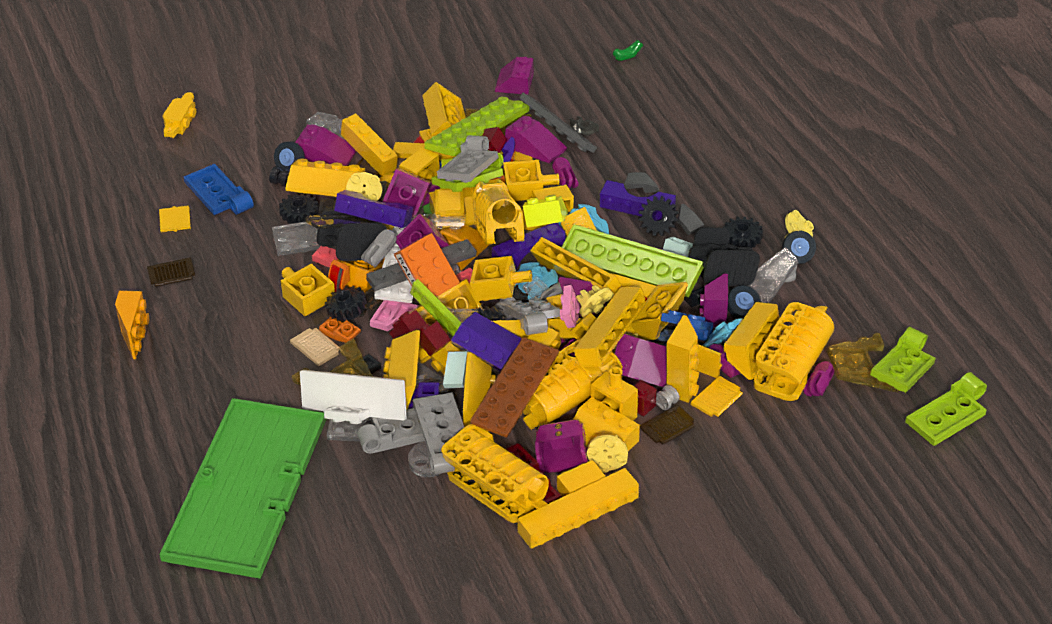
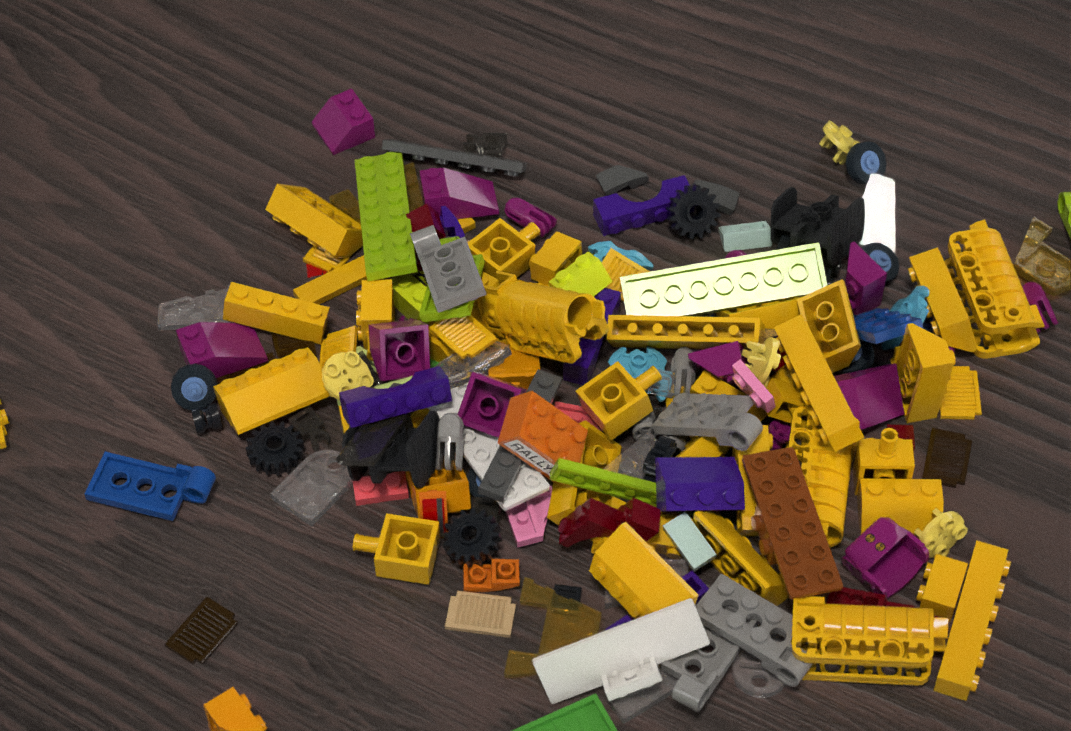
camera: 40 degrees left, 10 degrees up
(174, 218) = (127, 556): yellow piece -> none
(629, 52) = (437, 19): green arm -> none
(667, 397) = (921, 423): light grey wheel -> none
(744, 232) = (789, 174): black gear -> none

